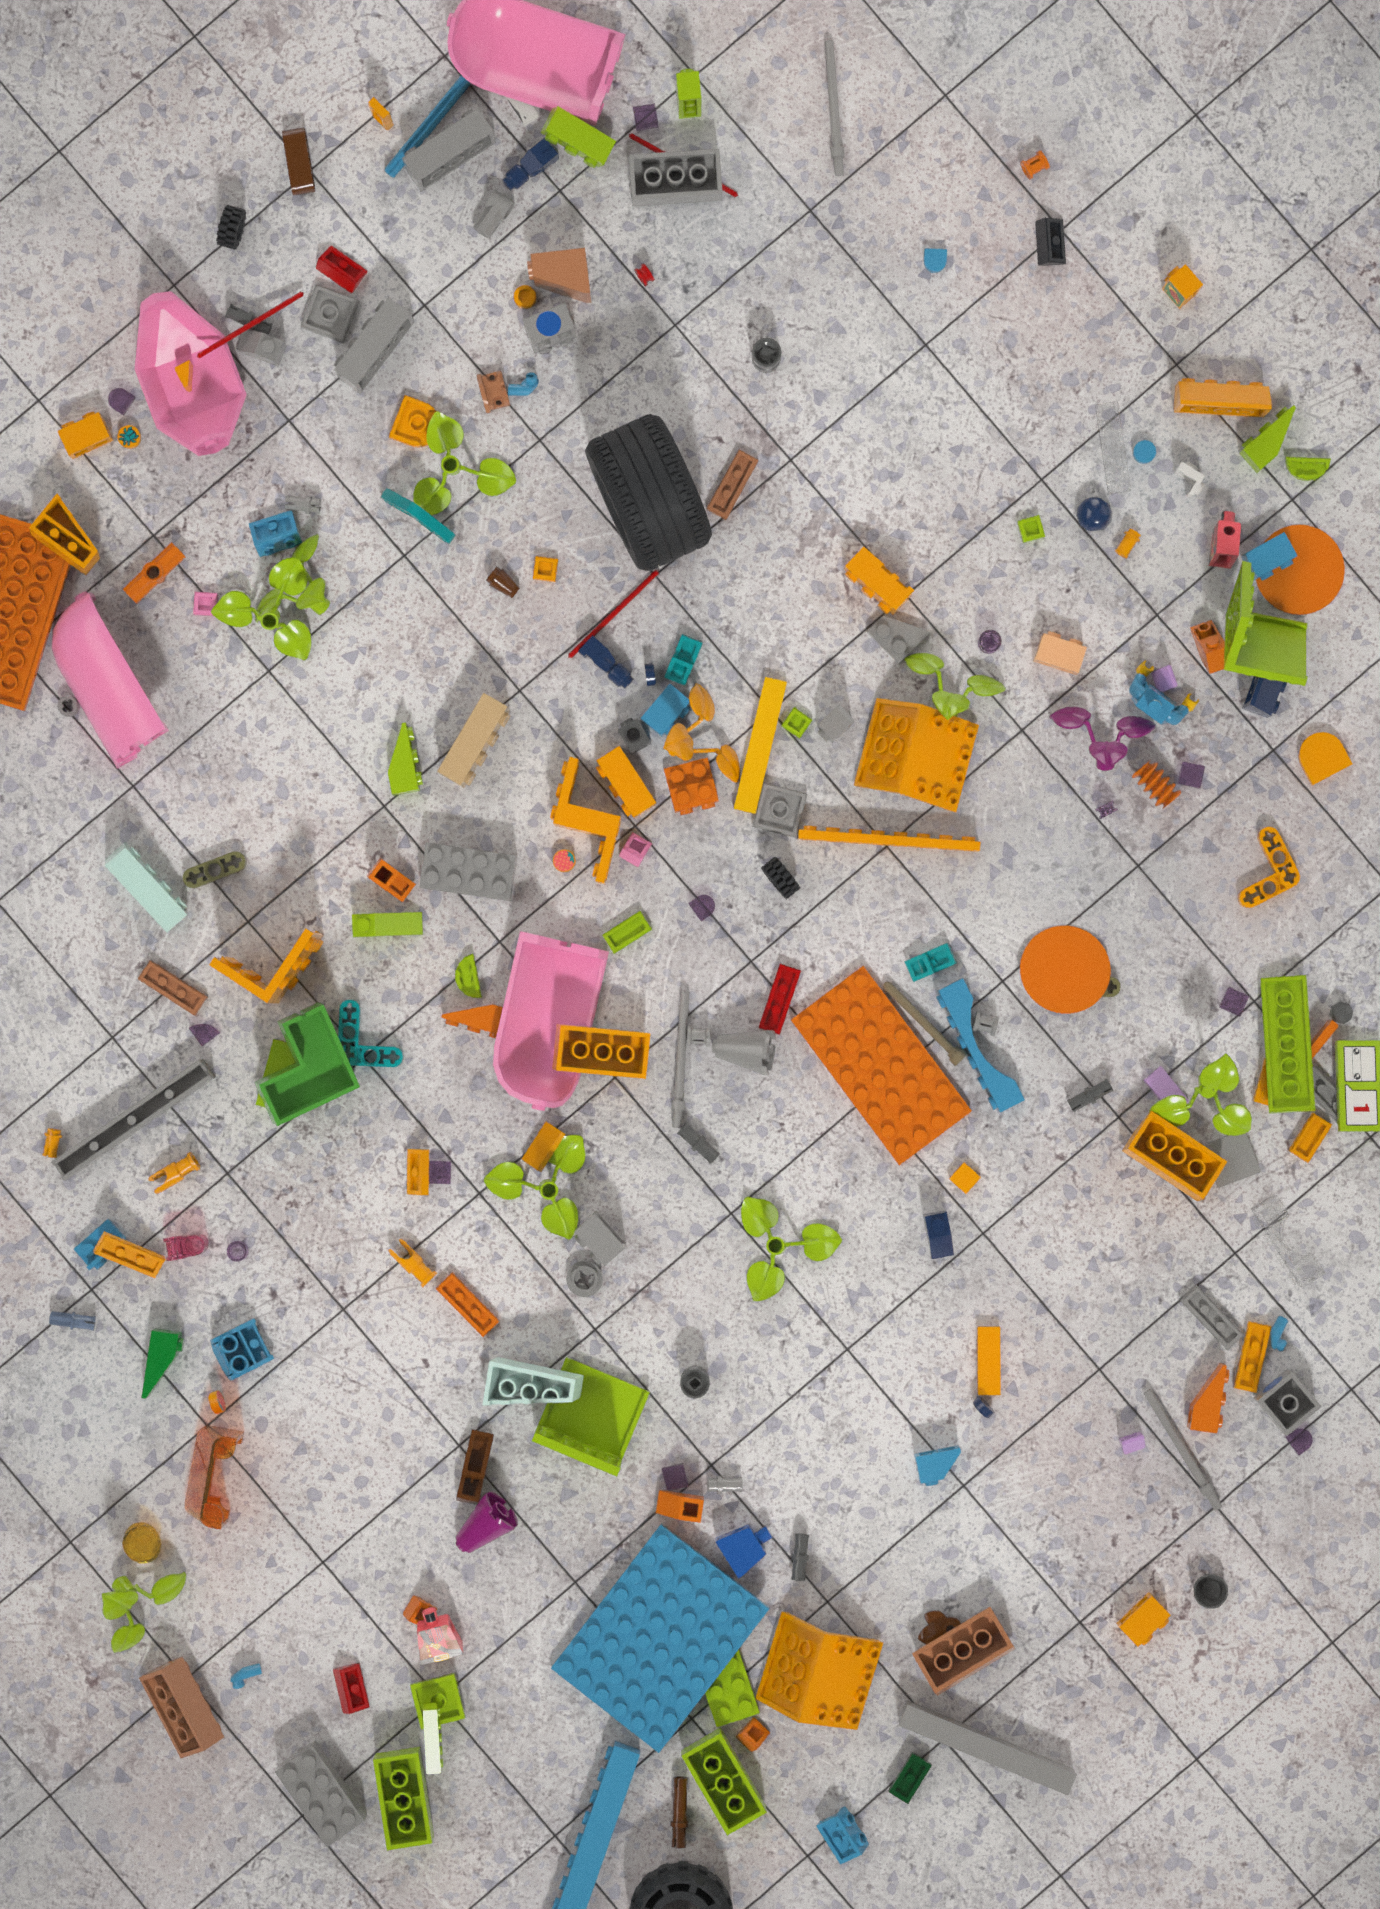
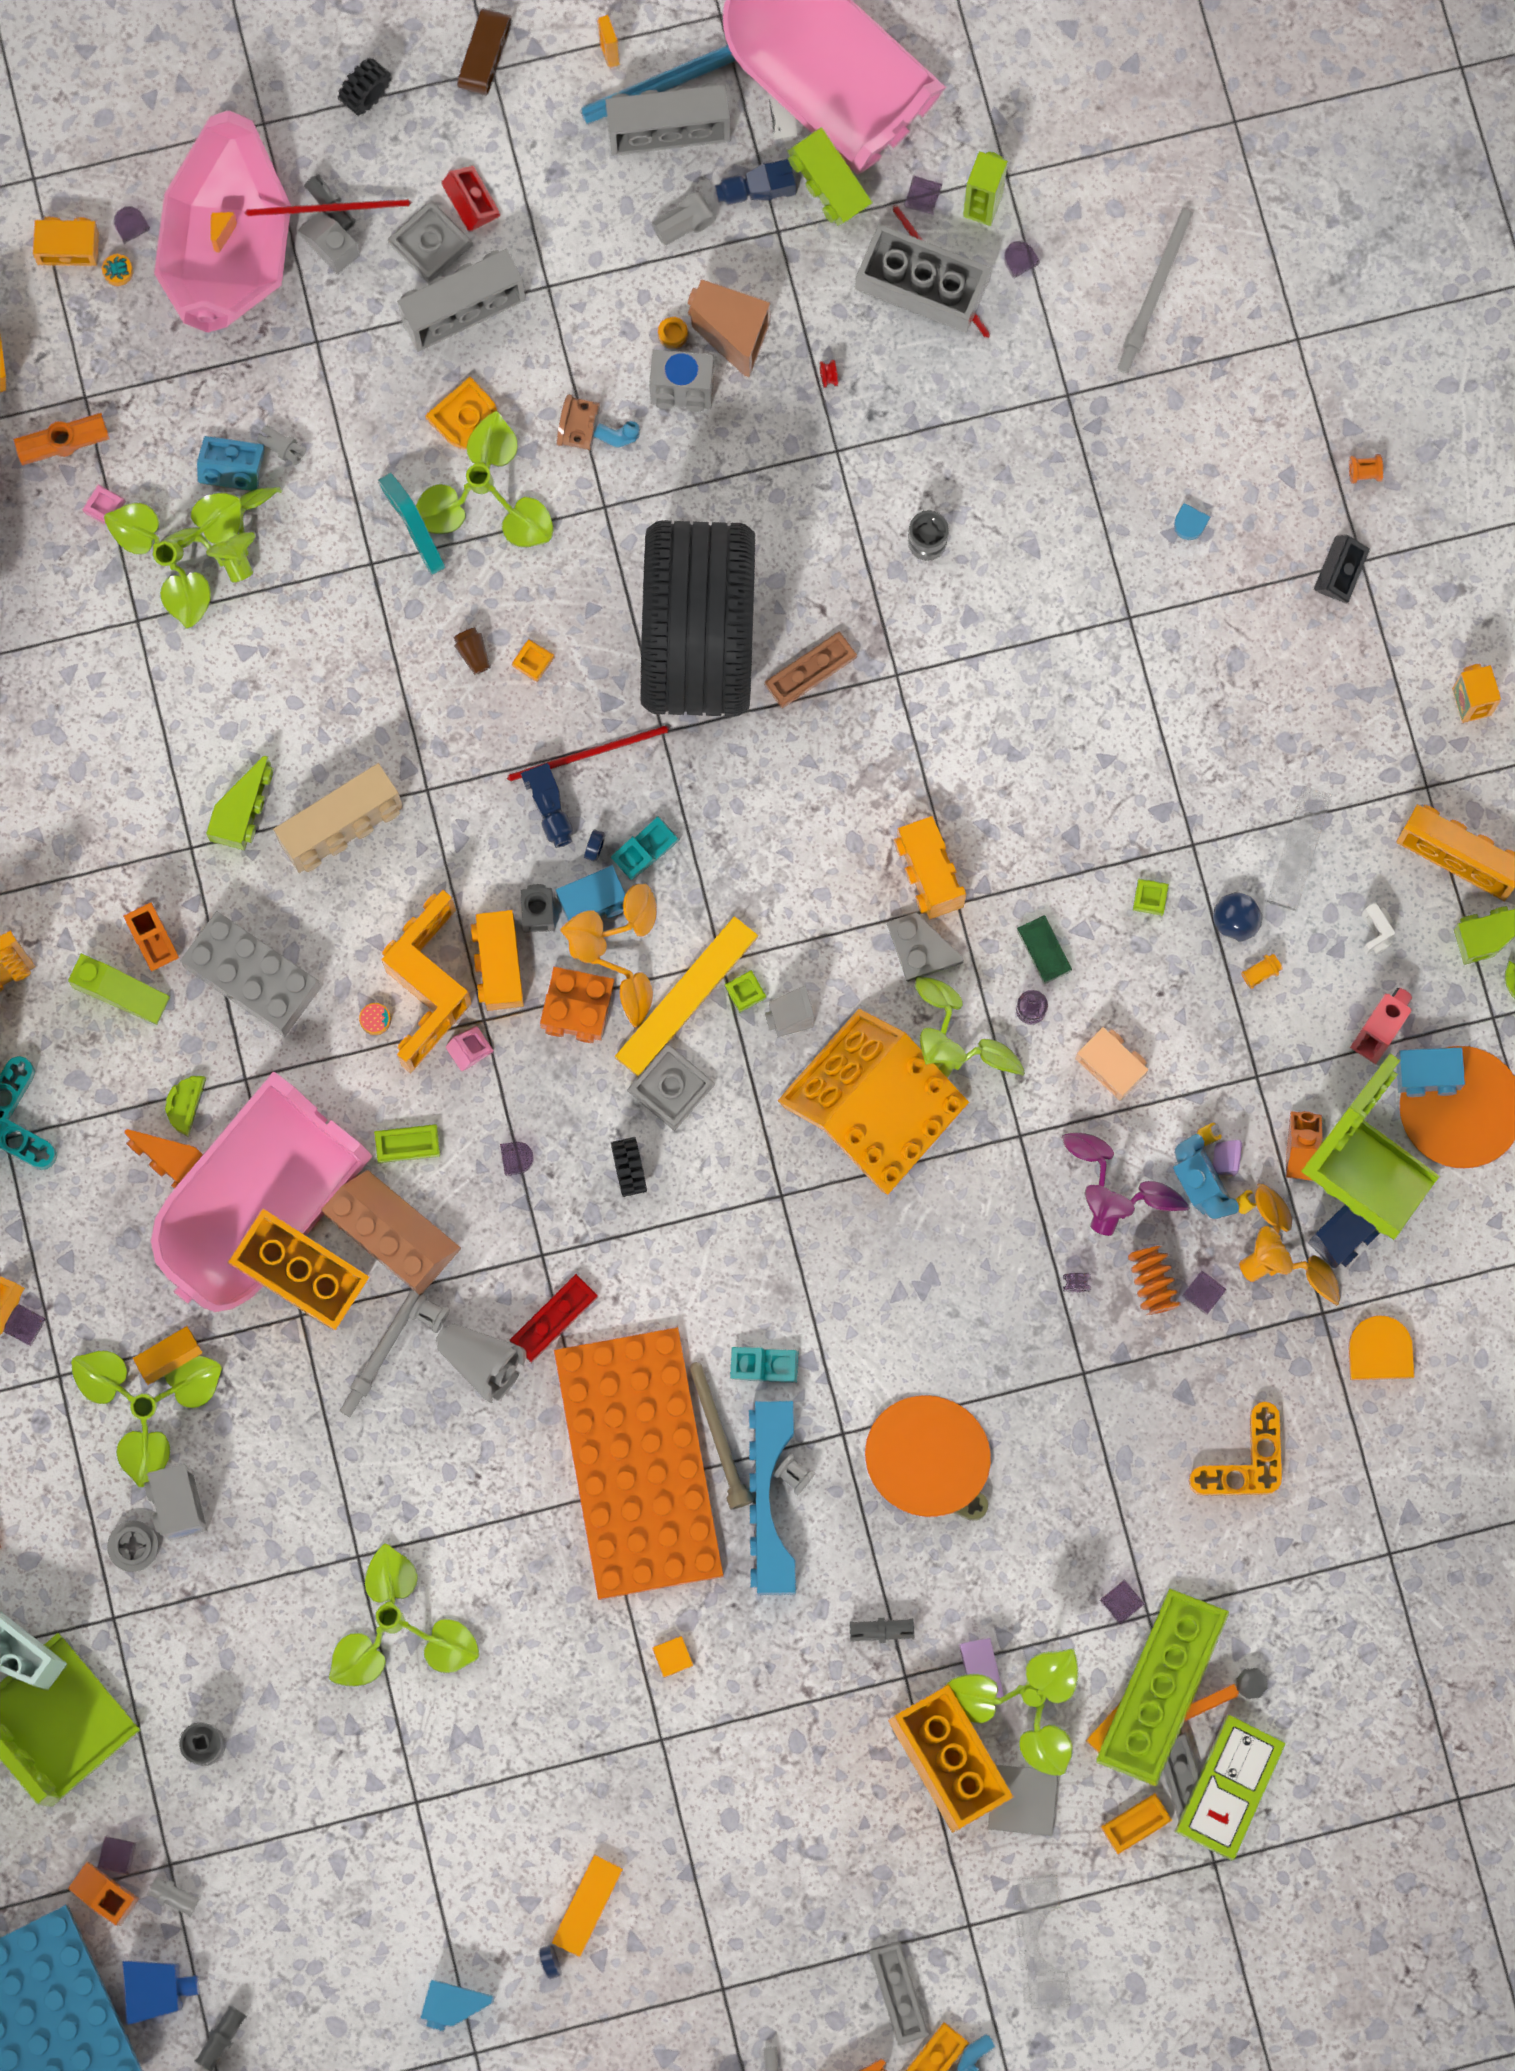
camera: 25 degrees right, 10 degrees down
(647, 994) = (391, 1230): none -> nougat slope
(698, 1143) = (361, 1446): dark grey pin -> none
(732, 130) = (1020, 258): none -> clear purple tile
(879, 838) = (776, 1180): light orange plate -> none
(938, 1234) = (603, 1712): dark blue slope -> none
(978, 598) = (1044, 949): none -> clear green tile
(1144, 452) = (1336, 871): dark azure tile -> none
(1224, 730) = (1272, 1256): none -> light orange plant

